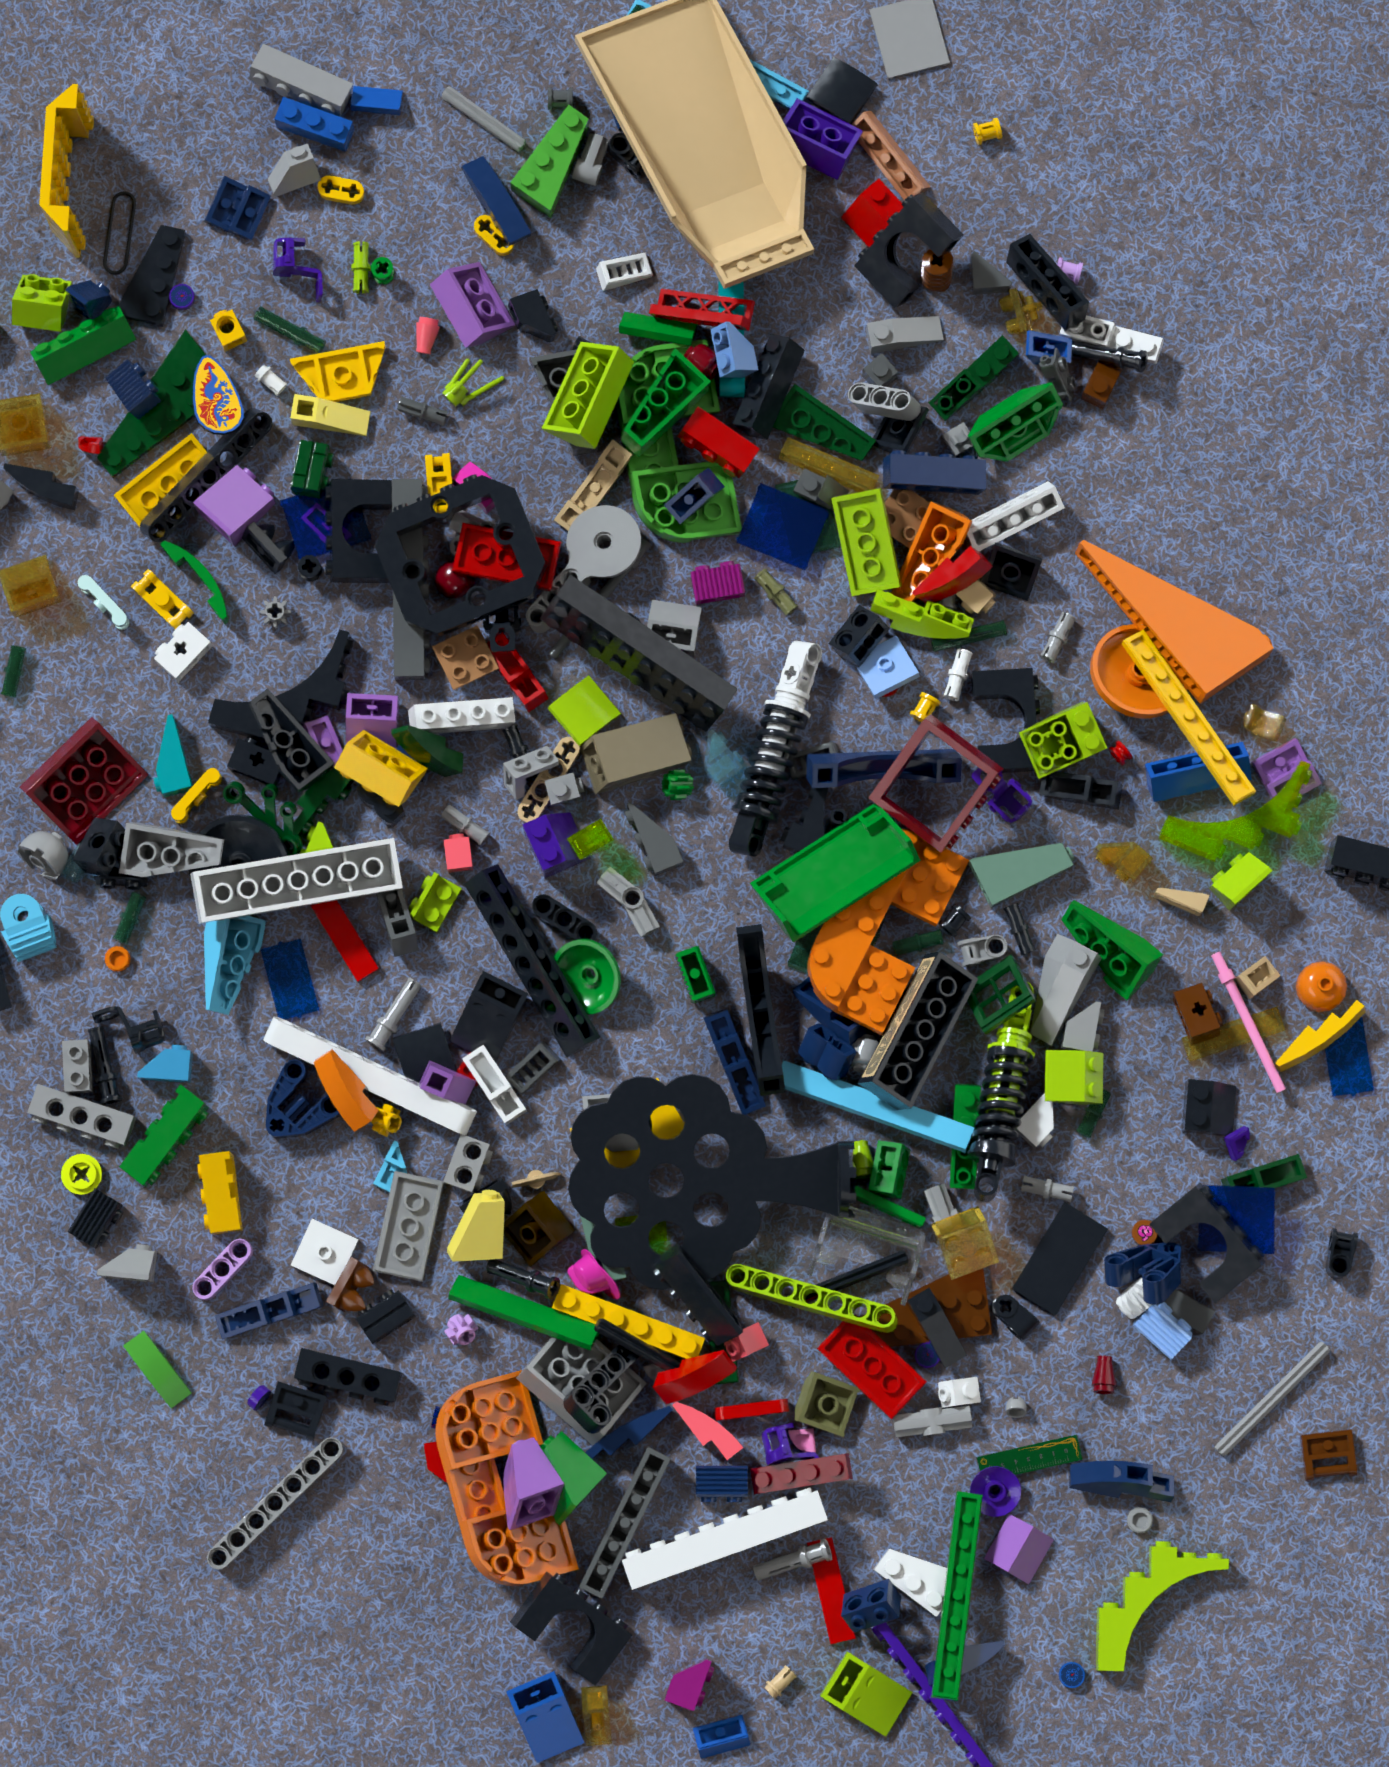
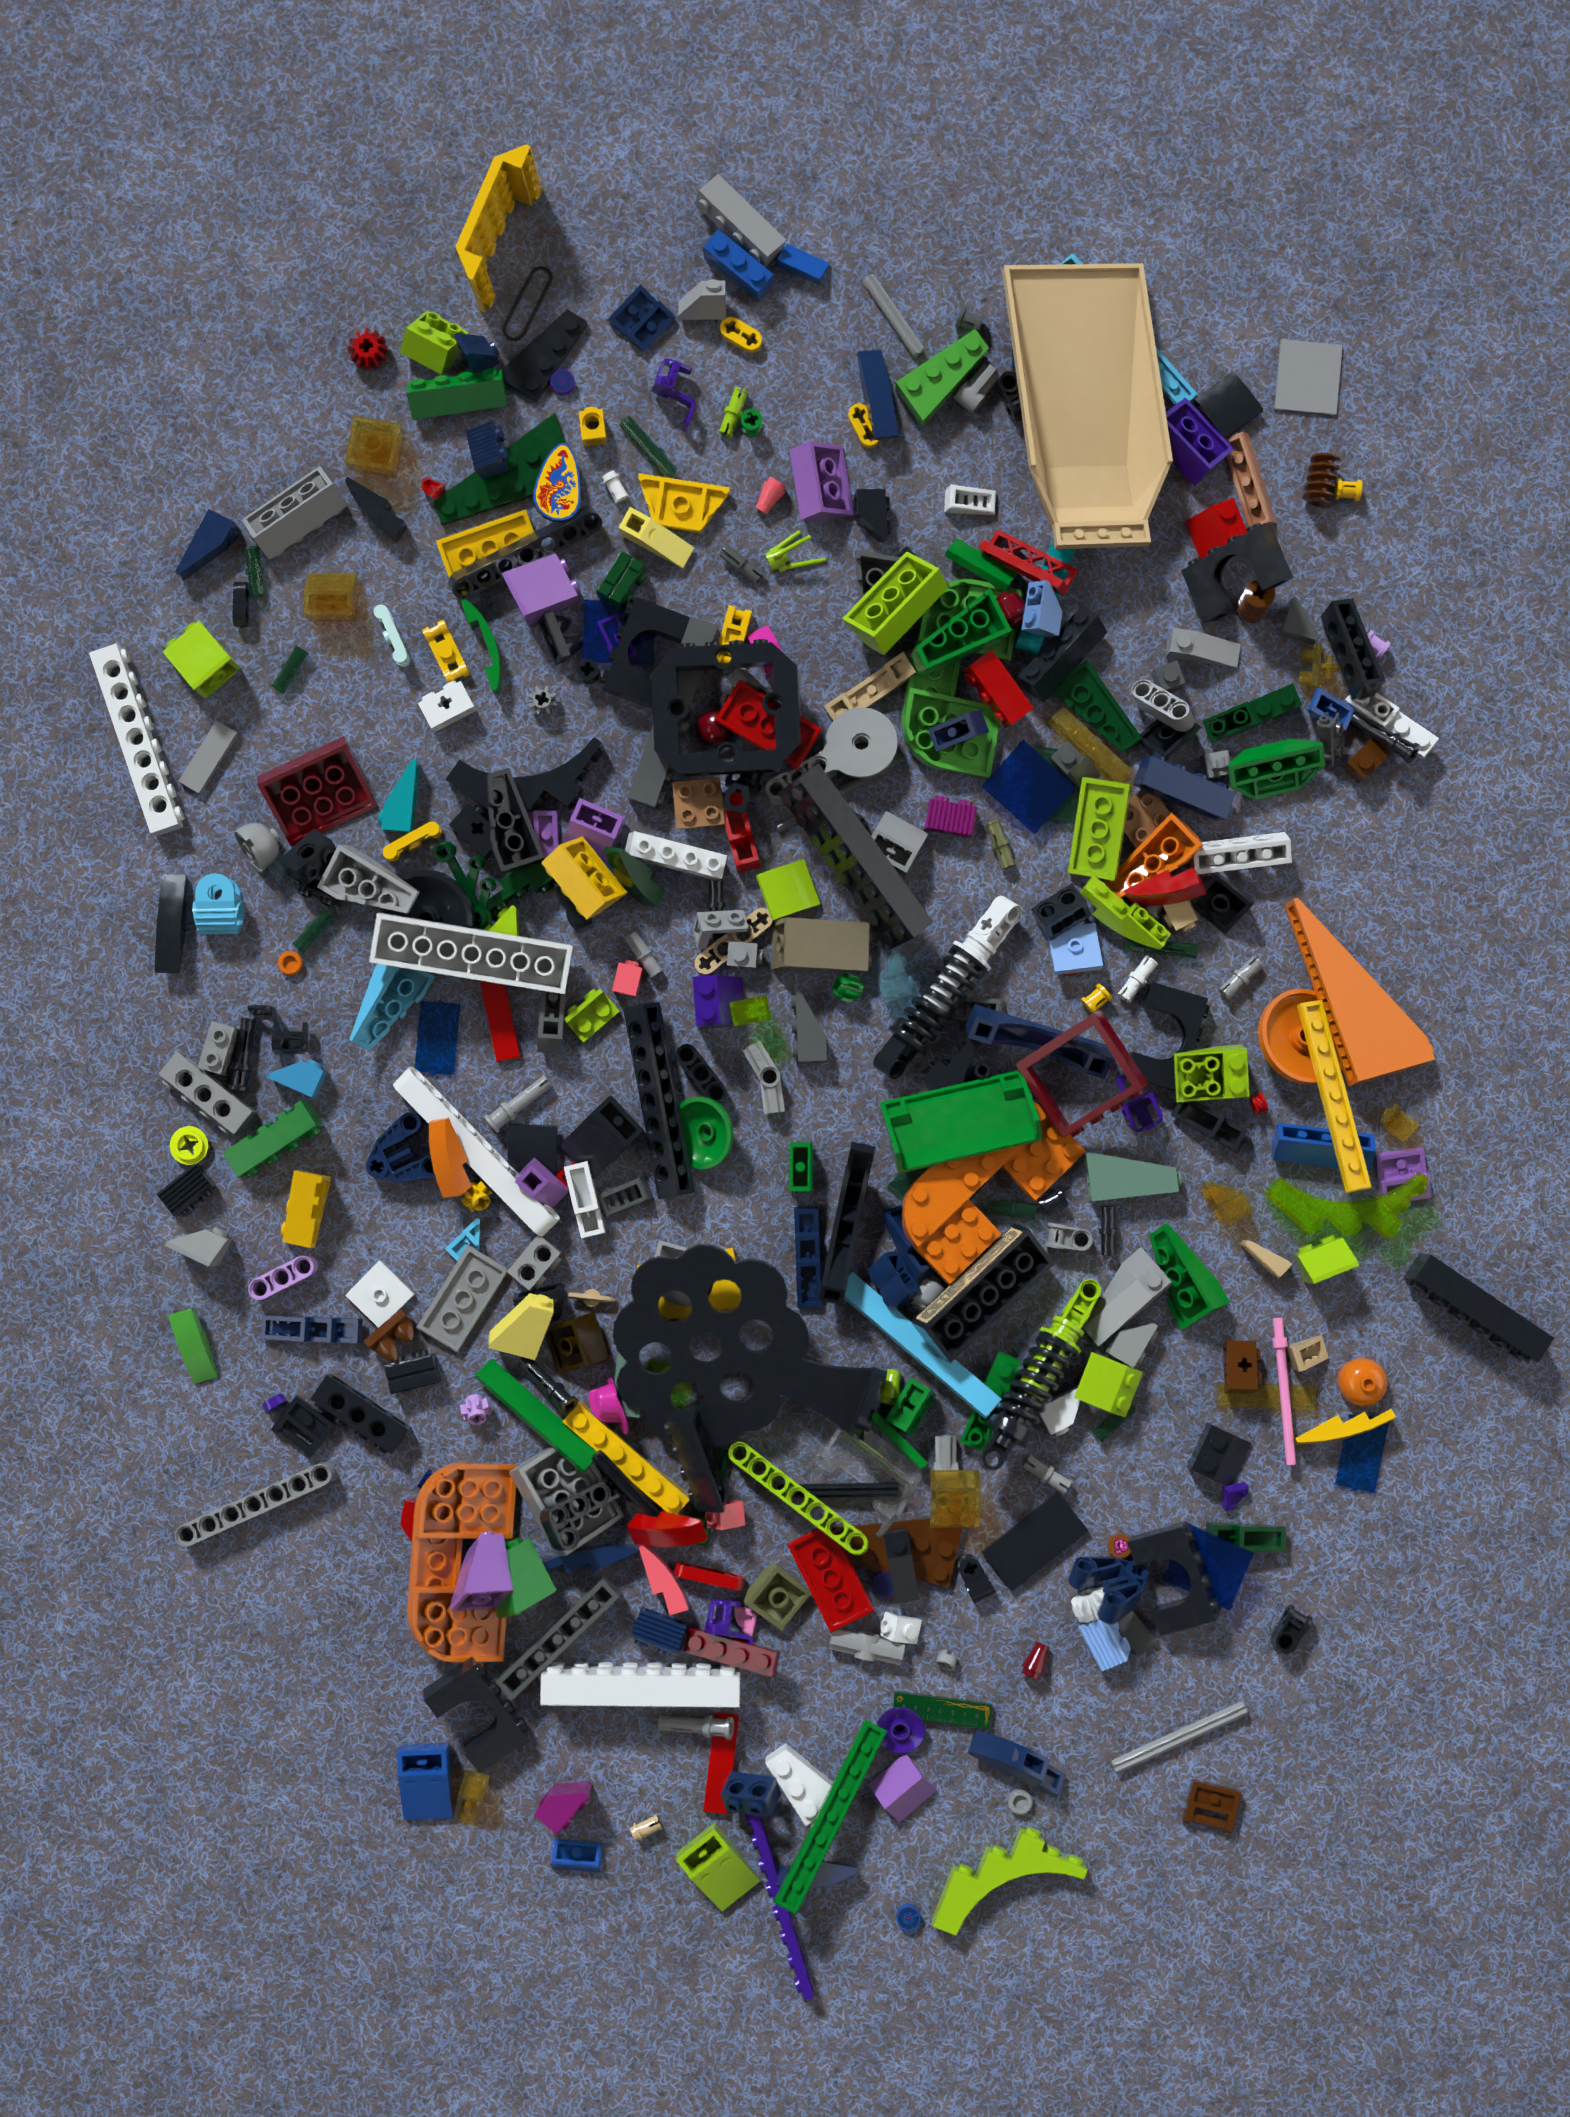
camera: 25 degrees right, 5 degrees up
(956, 131) = (1320, 478): none -> reddish brown piece
(1008, 1010) = (1070, 1304): dark green piece -> none

